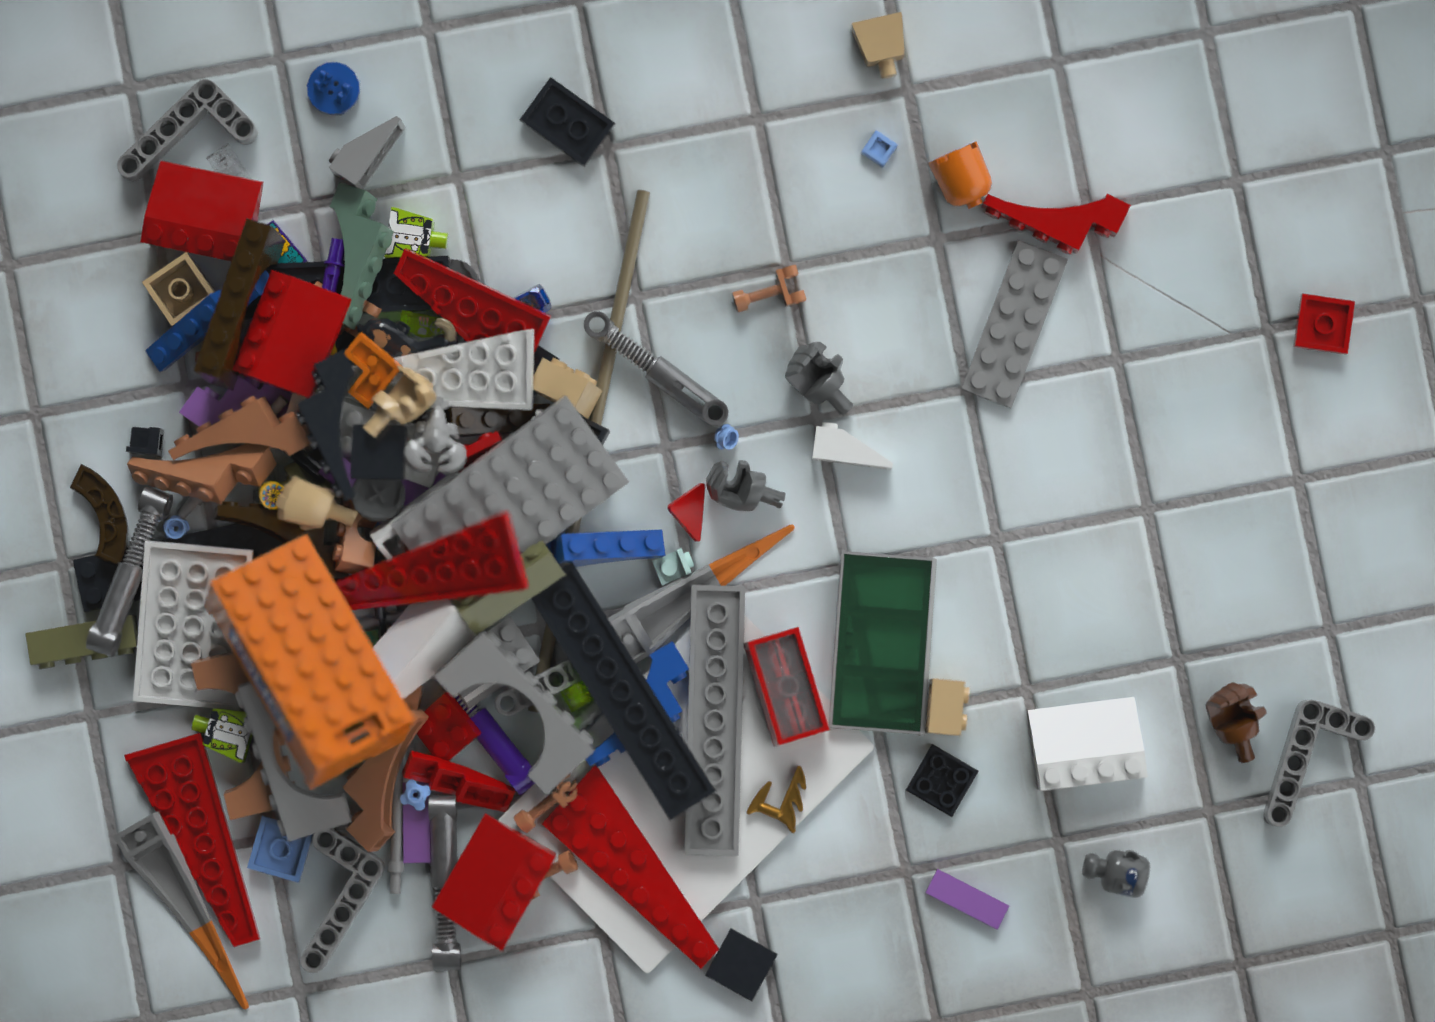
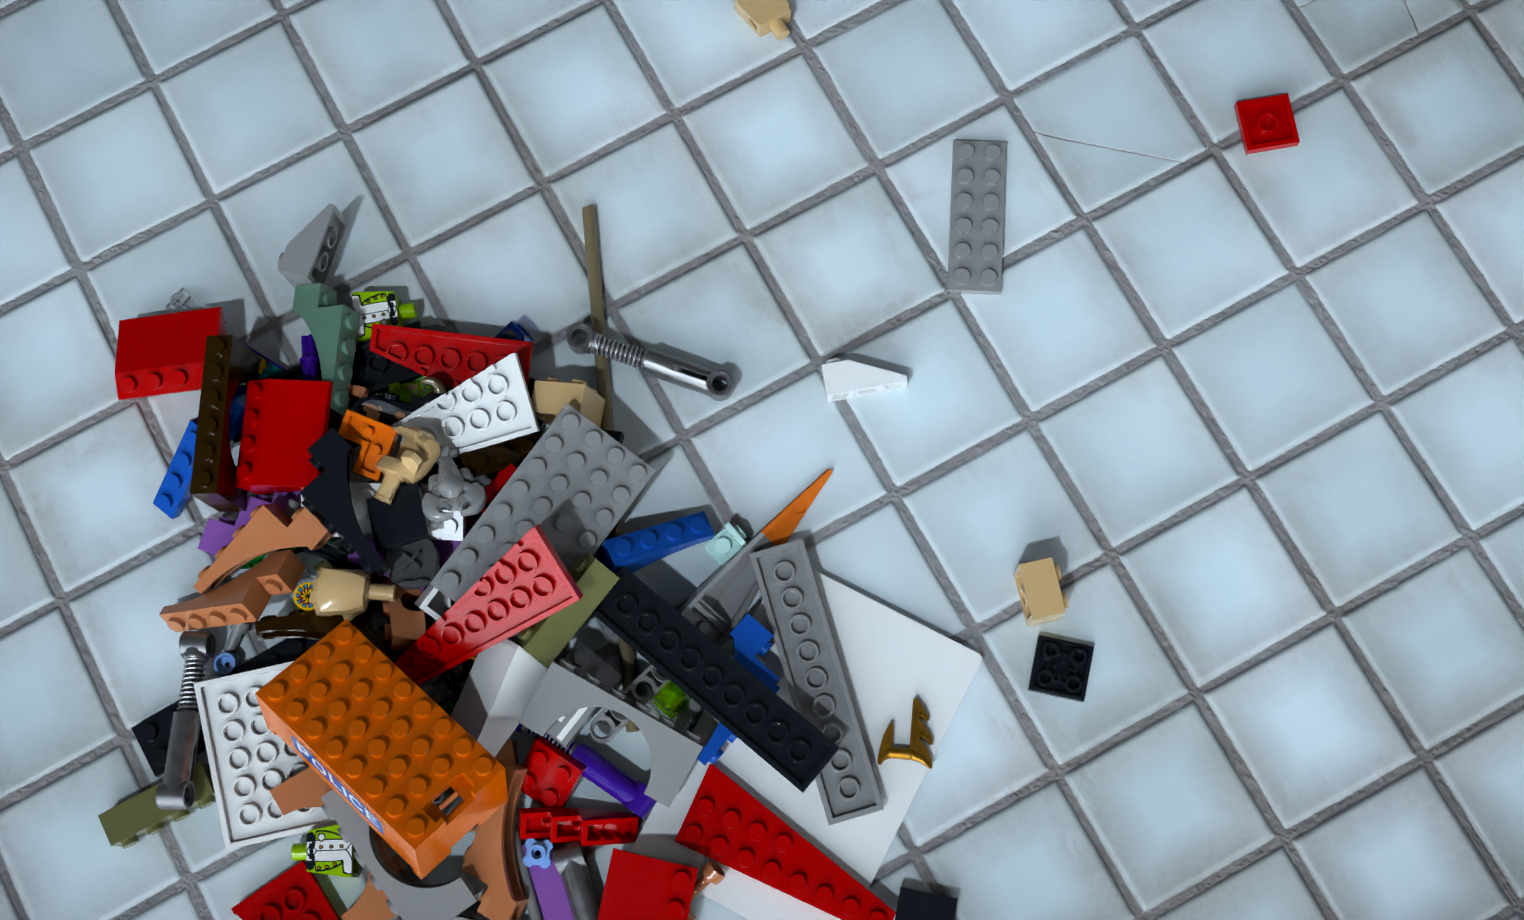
camera: 10 degrees left, 10 degrees down
(110, 512) = (156, 668): dark brown tile -> none
(146, 441) = (176, 589): black panel -> none
(178, 287) = (162, 429): tan brick -> none
(183, 126) = (136, 285): light grey beam -> none
(344, 94) = (281, 211): blue plate -> none
(525, 820) = (657, 842): nougat bar -> none
(567, 122) = (497, 168): black plate -> none
(689, 510) = (725, 485): red piece -> none
(726, 437) = (738, 405): light blue plate -> none
(743, 299) = (747, 237): nougat bar -> none
(744, 490) = (772, 447): dark grey piece -> none
(786, 686) = (875, 622): clear brick -> none
(818, 376) = (807, 321): dark grey piece -> none
(879, 148) = (795, 102): light blue tile -> none
(882, 643) = (955, 553): clear green door -> none
(962, 176) = (881, 96): orange cylinder -> none
(967, 899) = (1128, 779): medium lavender tile -> none
(1062, 226) = (987, 114): red arch -> none
(1087, 744) = (1191, 586): white slope -> none
(1120, 872) = (1272, 700): dark grey piece -> none
(1235, 718) = (1328, 513): reddish brown piece -> none
(1303, 752) = (1407, 525): light grey beam -> none

